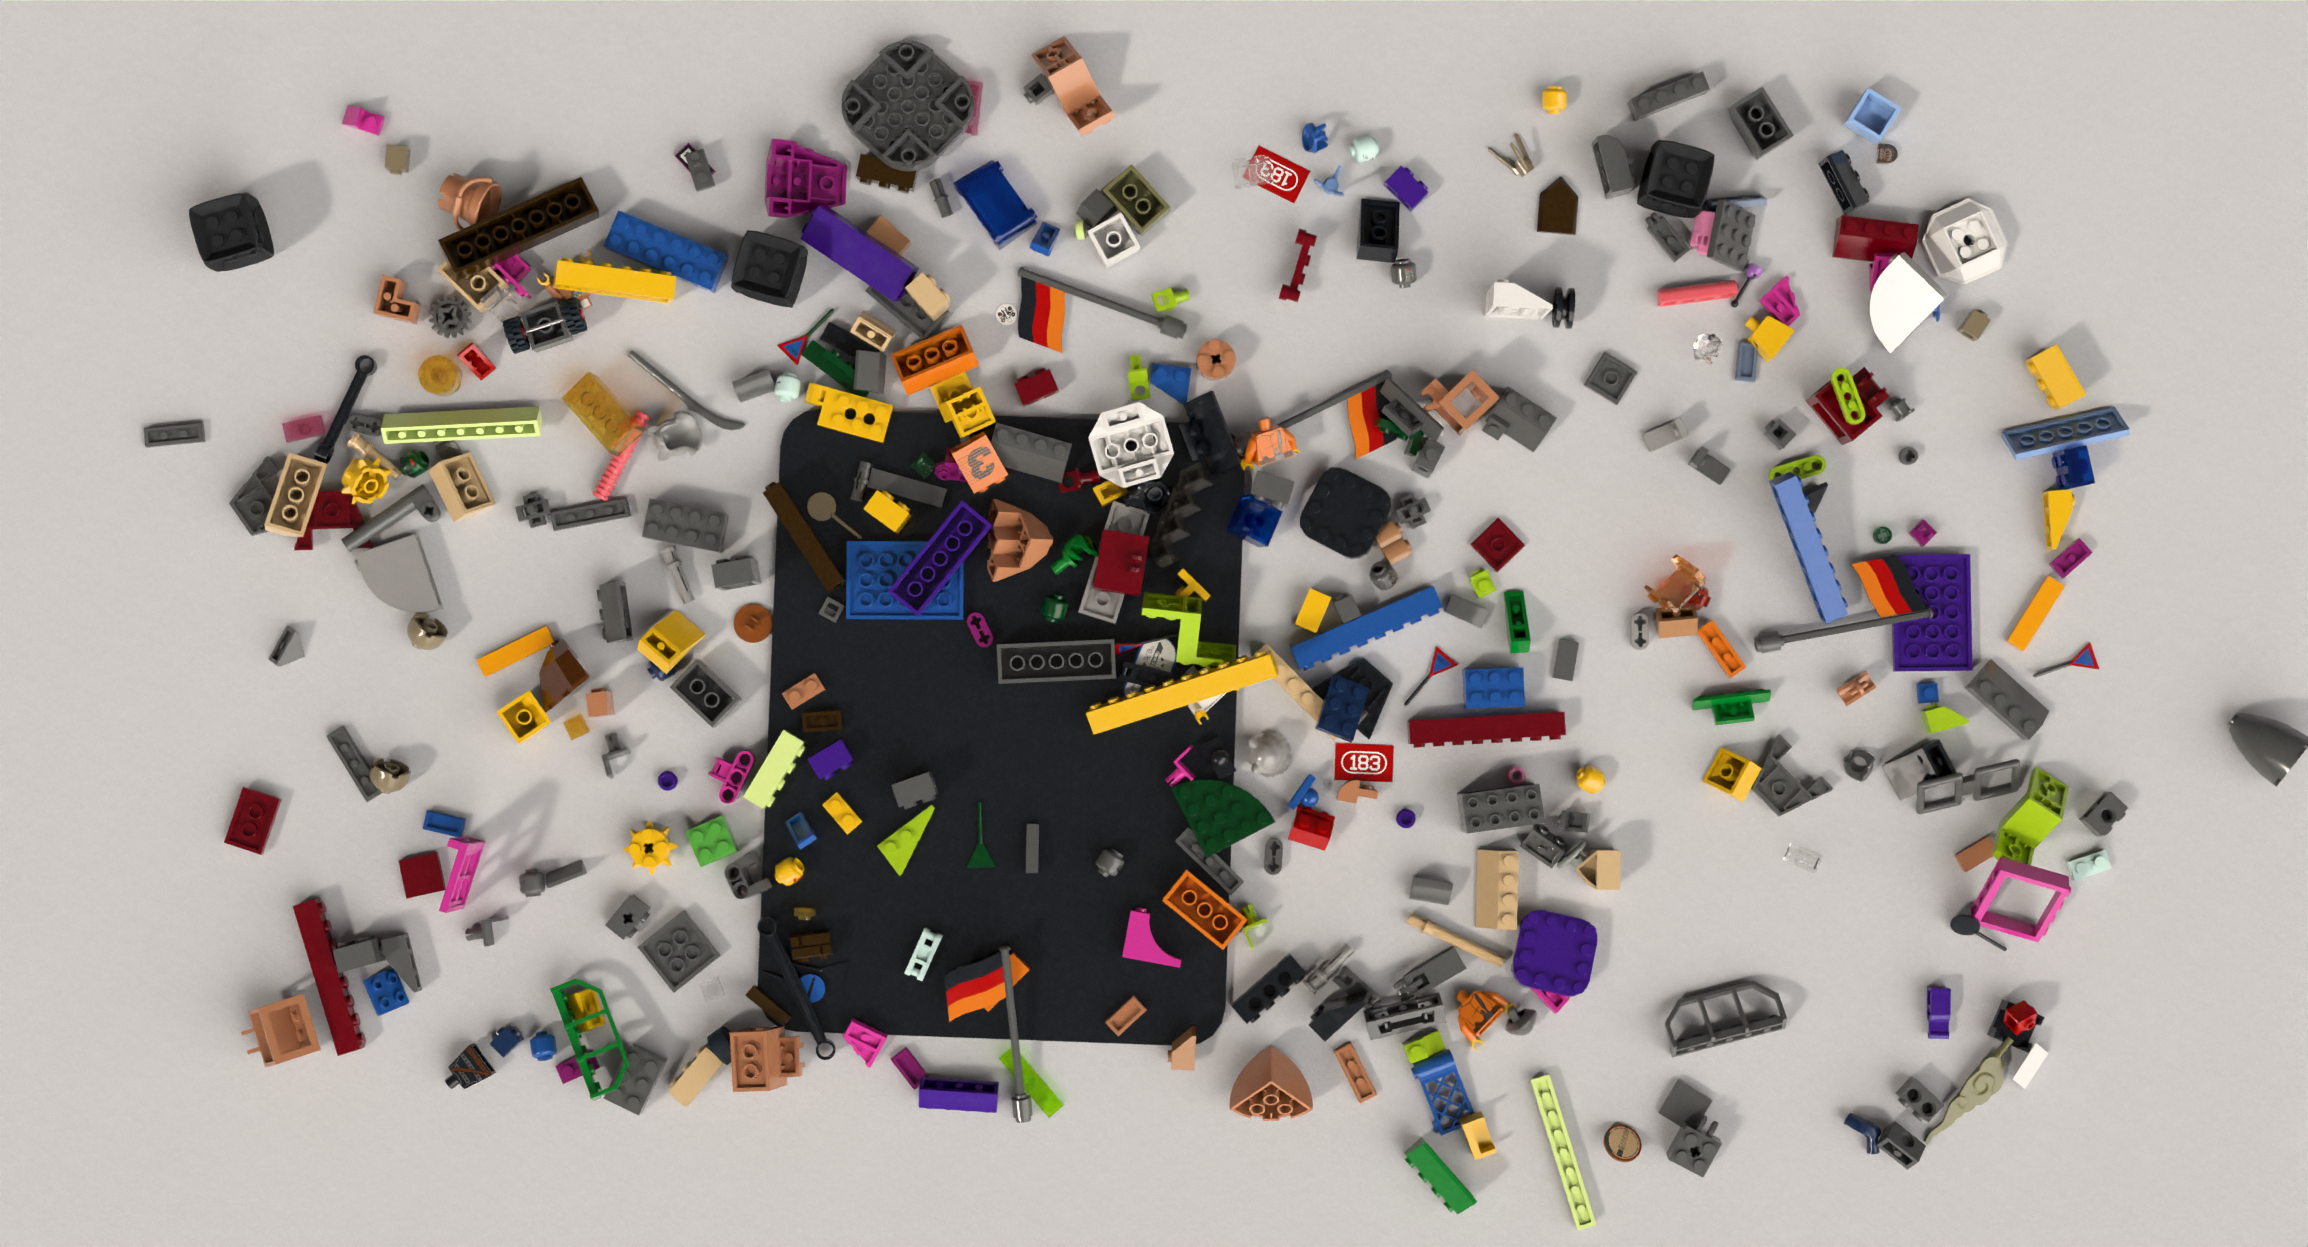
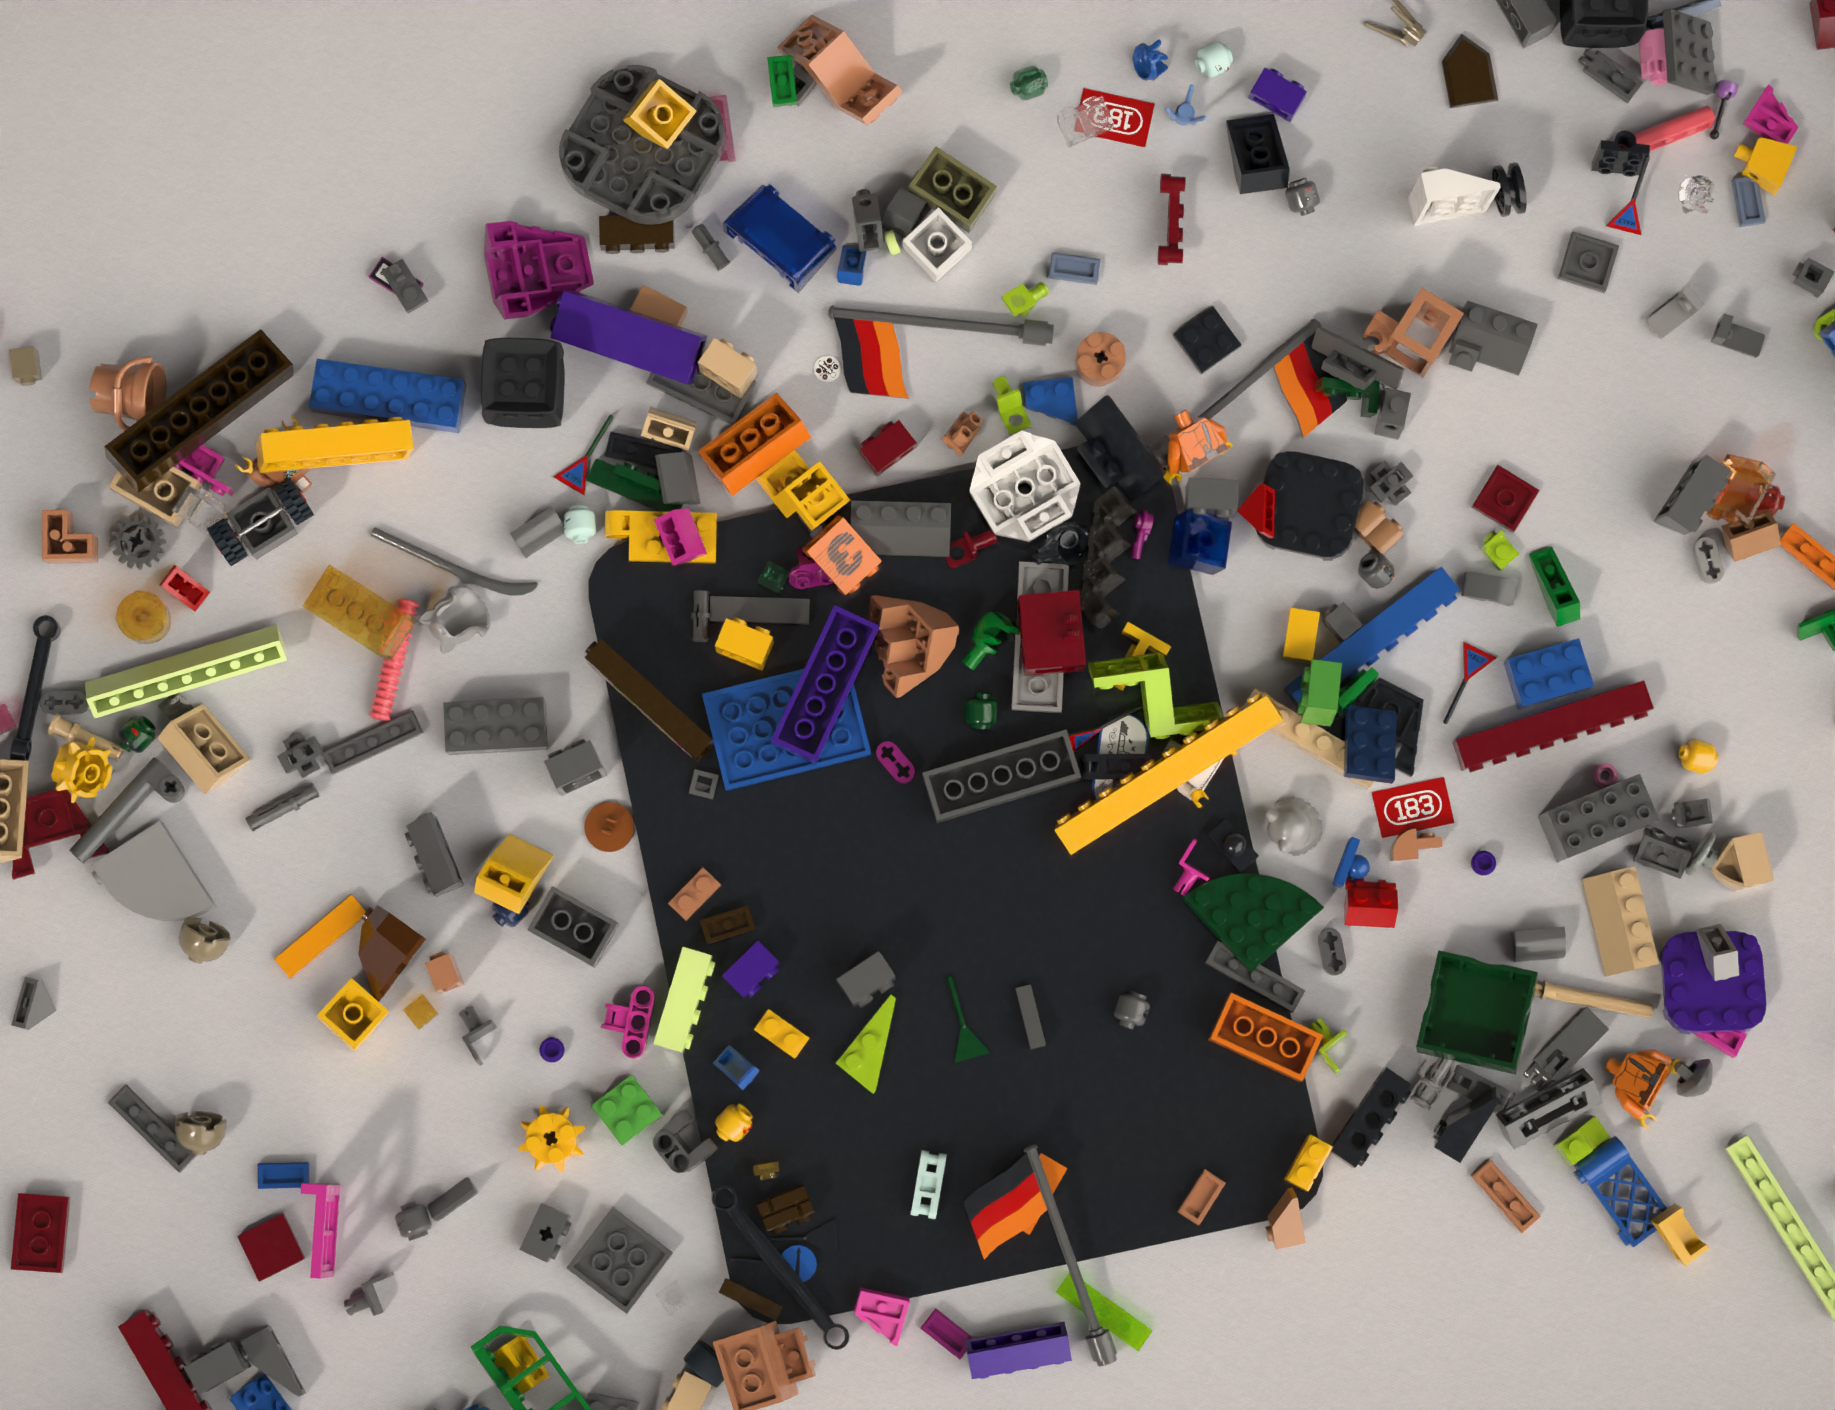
camera: 15 degrees left, 5 degrees down
(517, 544) = (283, 806): none -> dark grey pin
(674, 565) = (493, 779): light grey pin -> none
(822, 507) = (661, 660): dark tan piece -> none
(859, 417) = (680, 536): none -> dark pink brick
(926, 86) = (659, 114): none -> yellow slope
(1026, 83) = (782, 80): none -> green plate
(1065, 203) = (865, 213): none -> dark grey torso
(1096, 390) = (962, 432): none -> nougat hips
(1108, 492) = (1010, 552): yellow slope -> none
(1140, 941) = (1195, 1098): dark pink arch -> none
(1212, 1011) = (1308, 1162): none -> yellow brick
(1214, 284) = (1074, 268): none -> sand blue tile
(1215, 495) = (1143, 523): none -> magenta plate
(1217, 131) = (1029, 83): none -> clear green head
(1271, 1088) = (1406, 1241): nougat brick -> none
(1301, 365) = (1207, 340): none -> black plate
(1305, 508) = (1260, 510): none -> red slope
(1314, 660) = (1320, 692): none -> bright green brick
(1348, 659) = (1360, 684): none -> green plate
(1369, 931) = (1477, 1012): none -> dark green tile
(1440, 1176) = (1646, 1297): green slope -> none
(1563, 933) = (1718, 952): none -> light grey slope
(1565, 660) = (1627, 618): dark grey tile -> none
(1640, 580) = (1693, 495): none -> dark grey slope
(1649, 303) = (1615, 159): none -> black plate
(1650, 351) = (1627, 218): none -> piece

